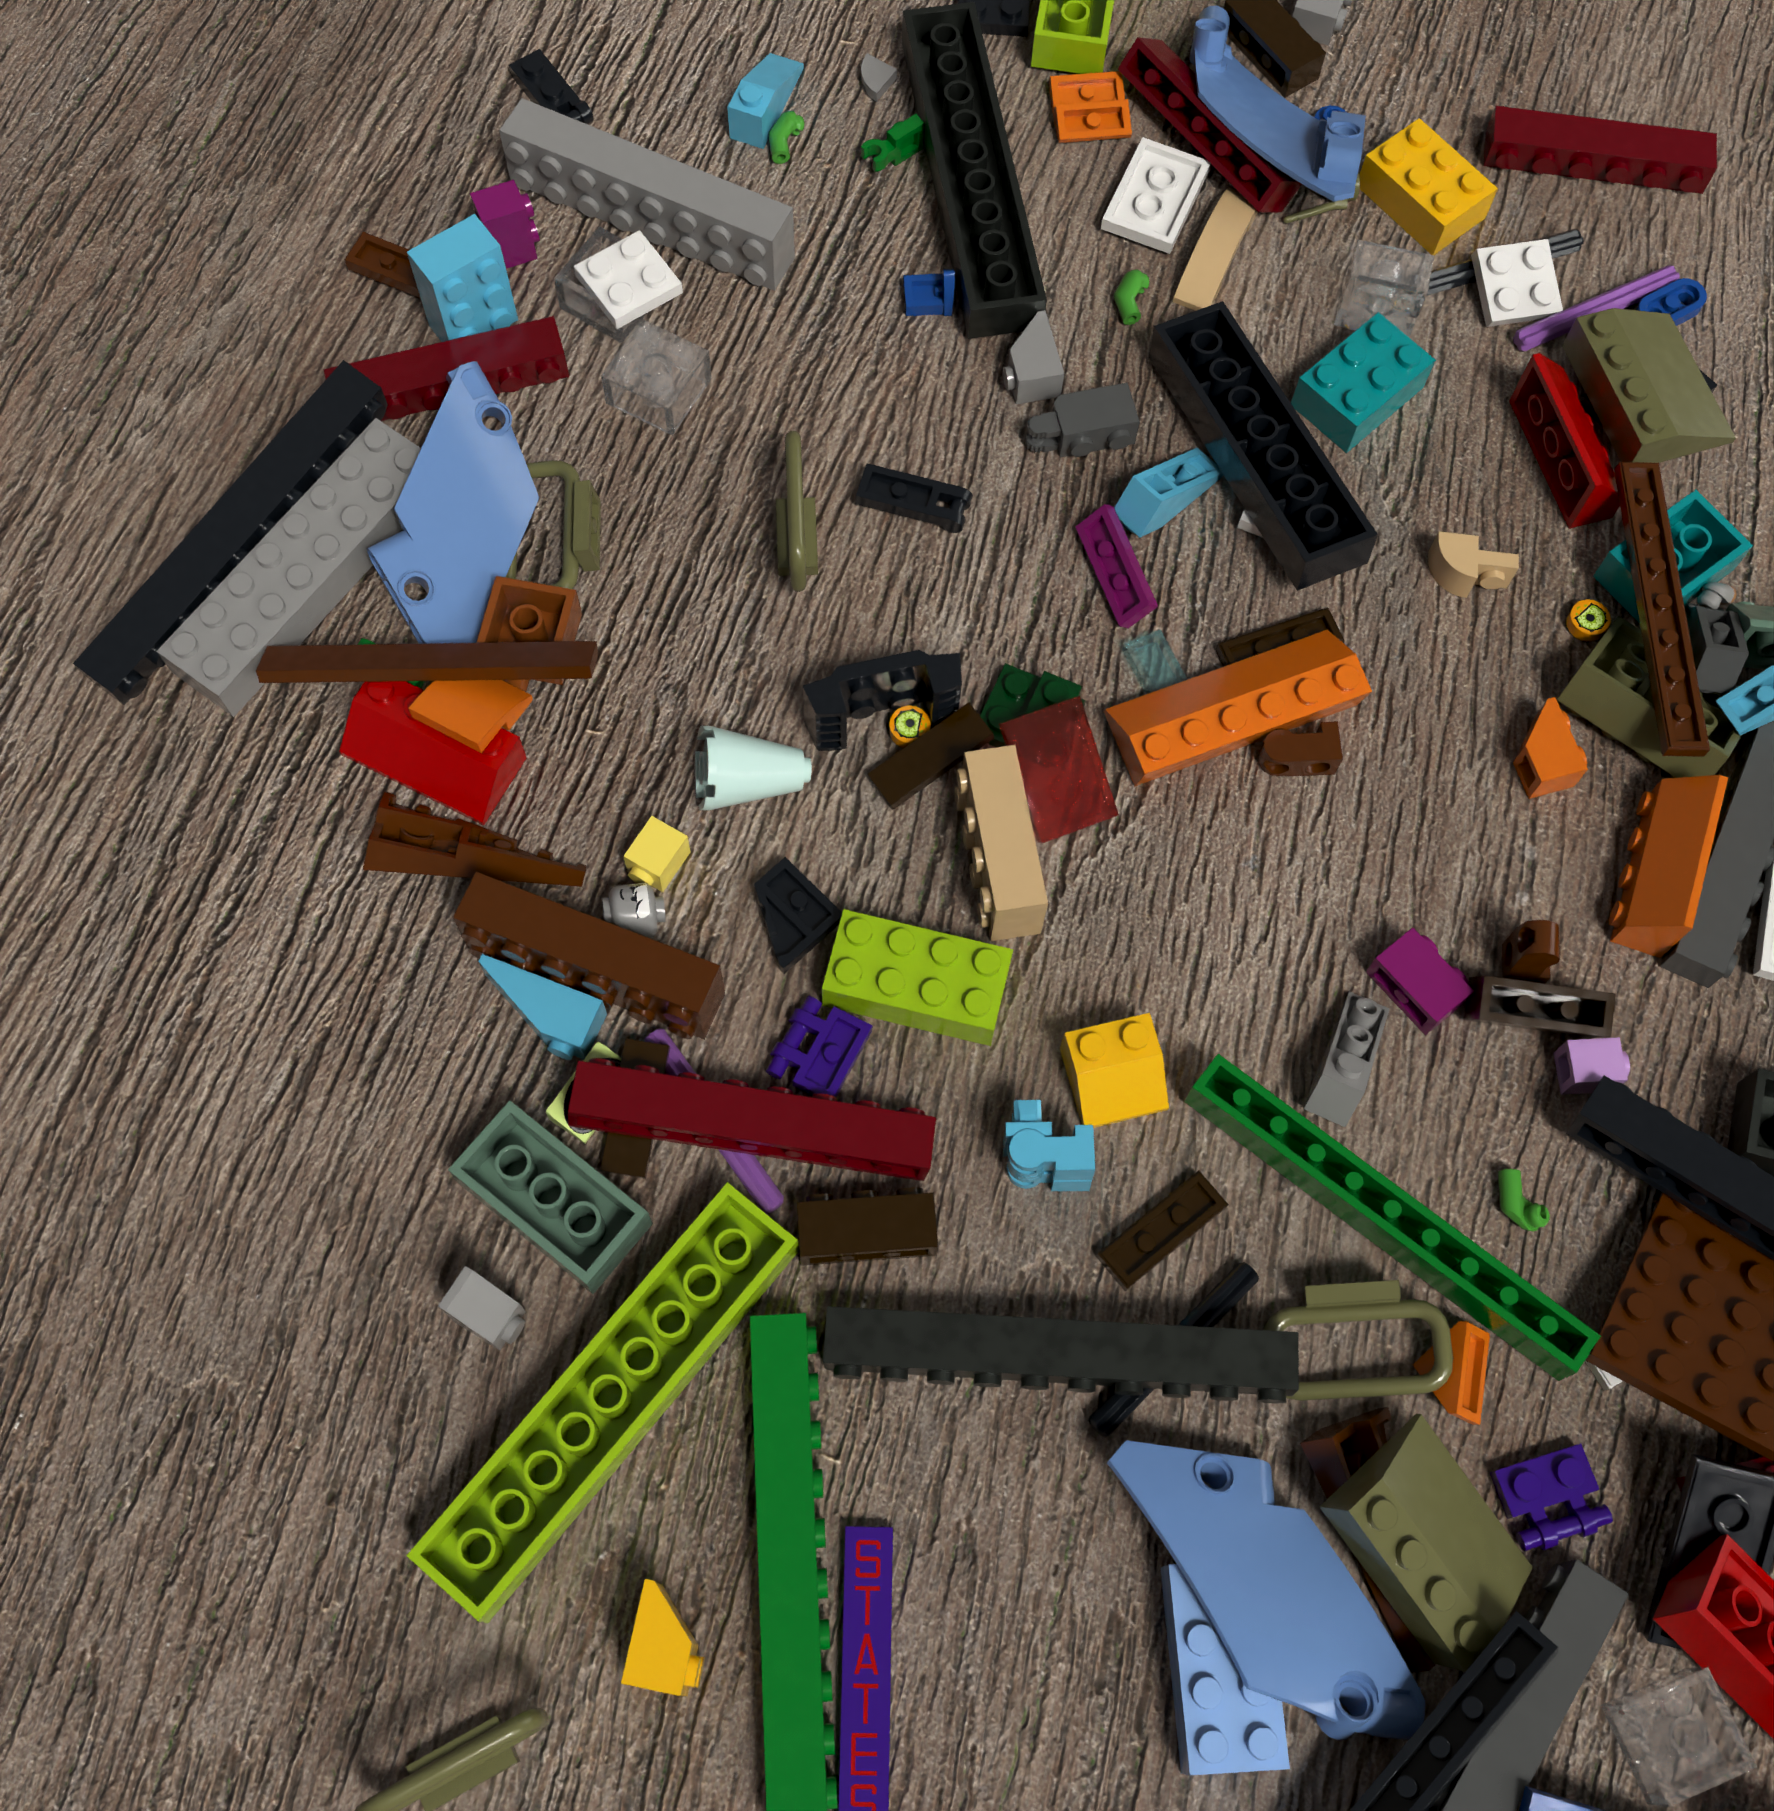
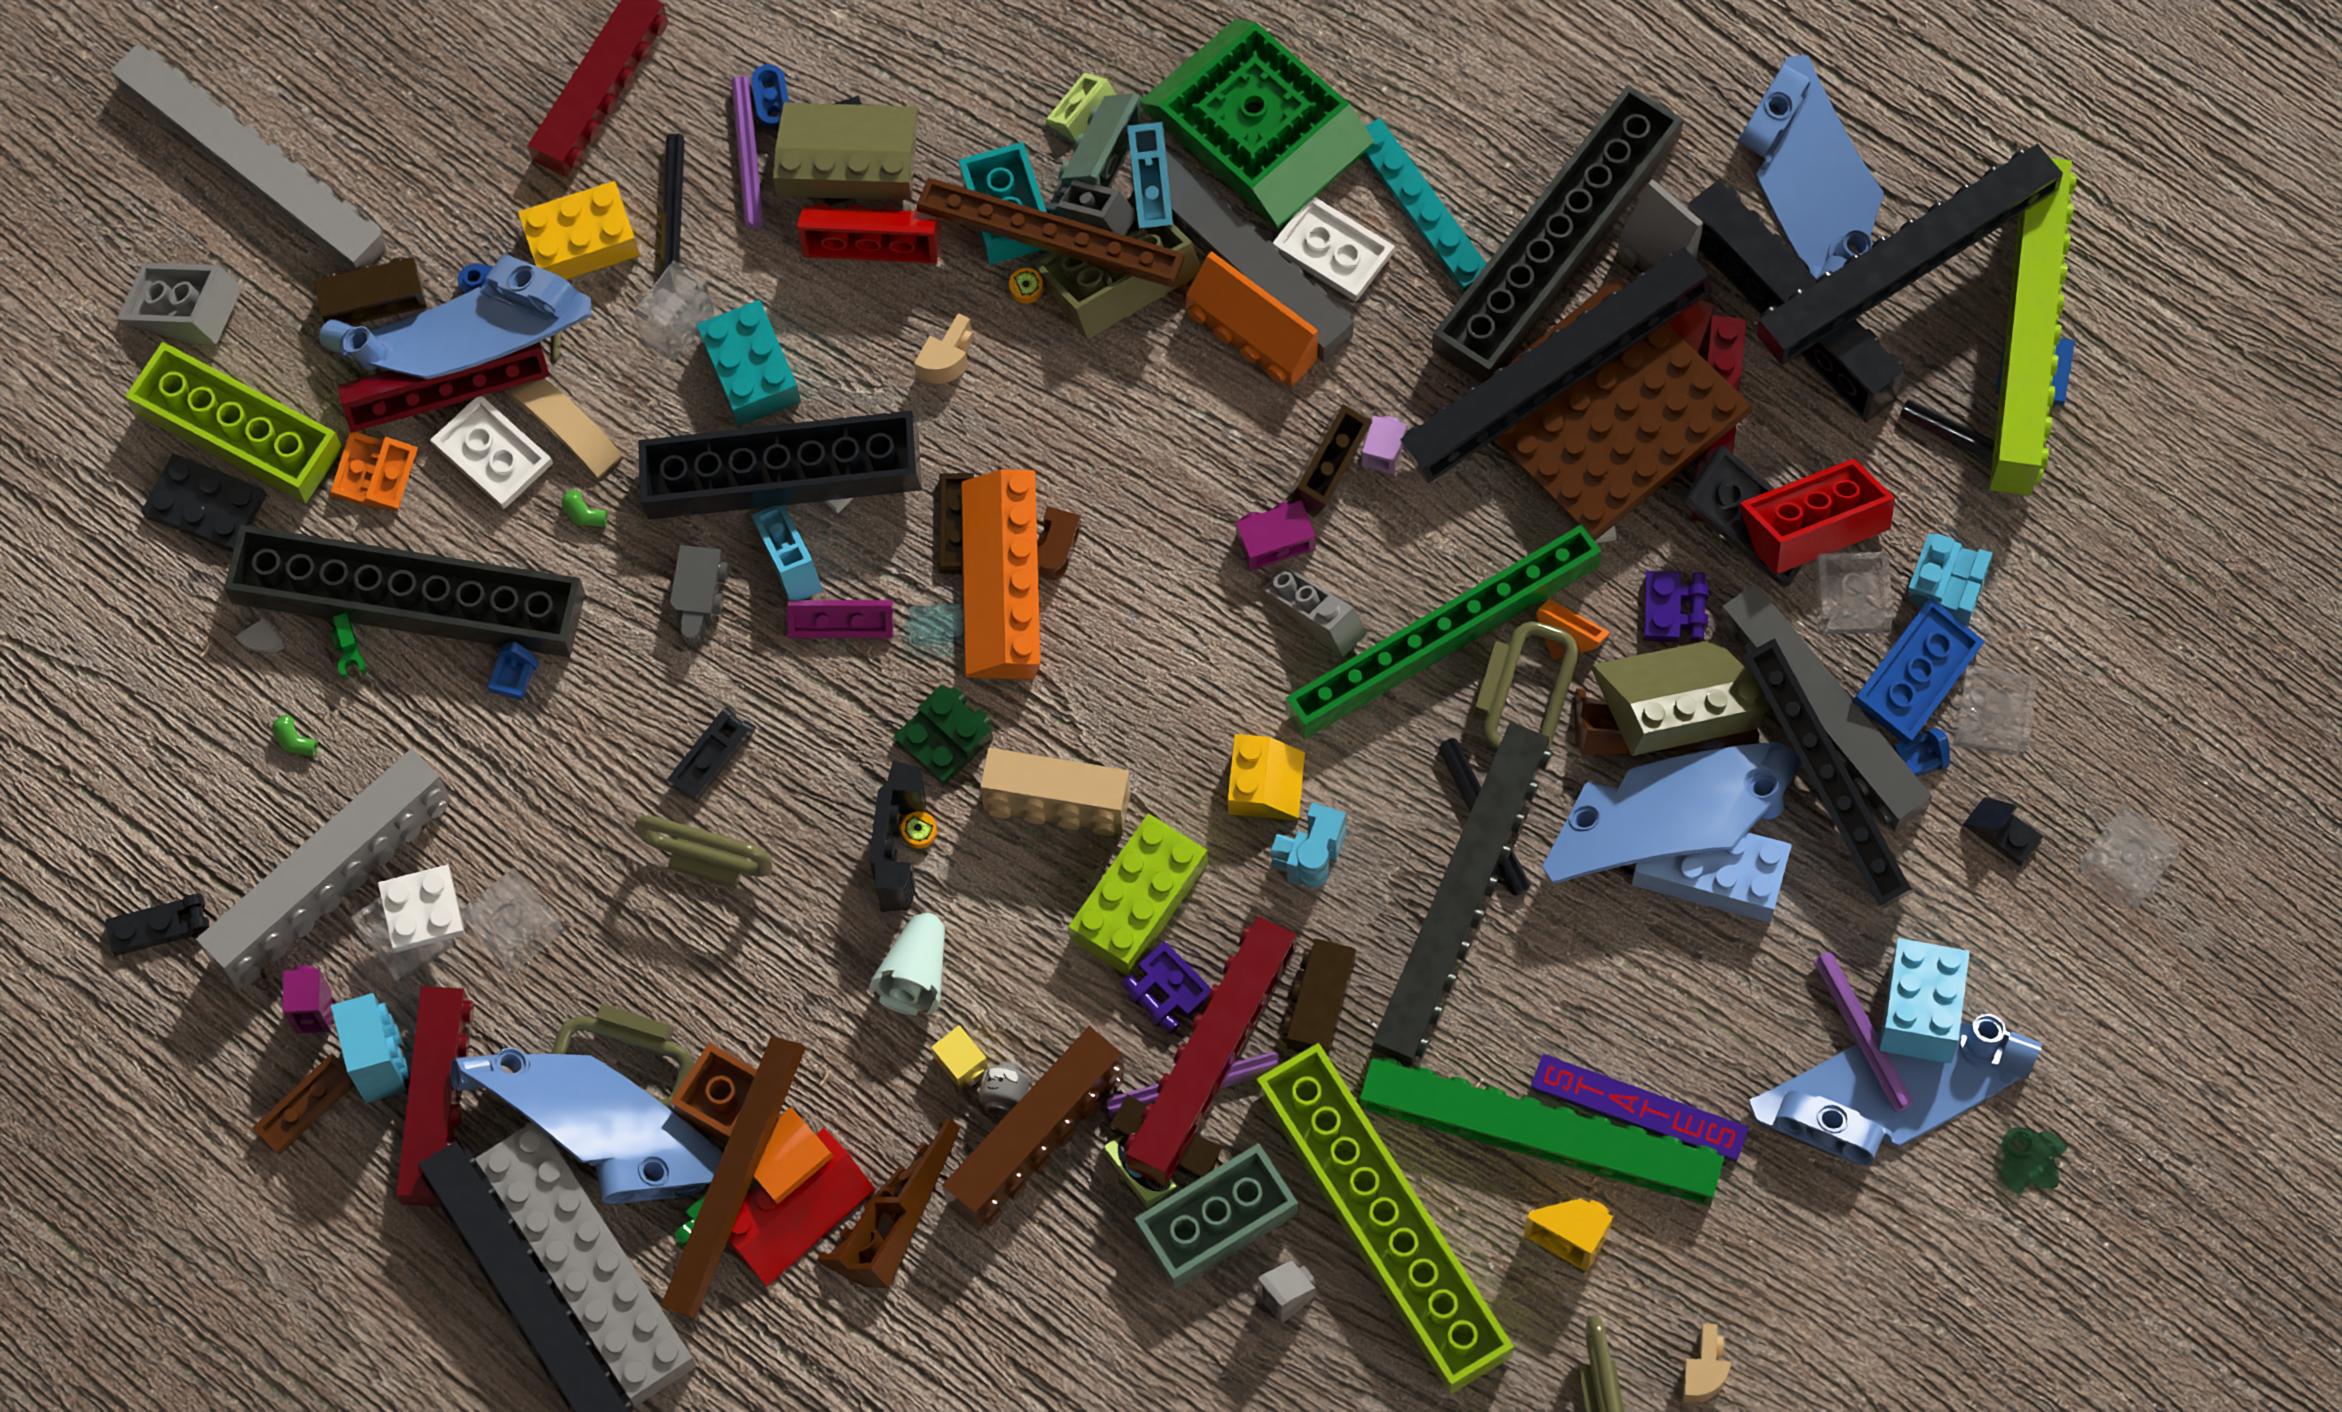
camera: 65 degrees left, 0 degrees up
(556, 1013) = (1060, 1179): medium azure slope -> none
(762, 99) = (245, 740): medium azure slope -> none
(794, 913) = (1048, 970): black wing -> none
(930, 755) = (954, 821): dark brown tile -> none
(1034, 363) = (622, 611): light grey slope -> none
(1060, 769) = (1005, 723): clear red tile -> none
(1161, 1230) = (1395, 792): dark brown tile -> none
(1514, 1205) = (1465, 541): bright green arm -> none
(1516, 282) = (701, 203): white plate -> none
(1531, 951) = (1286, 445): reddish brown leg -> none
(1549, 753) = (1127, 365): orange slope -> none
(1716, 594) = (1047, 185): light grey arm -> none

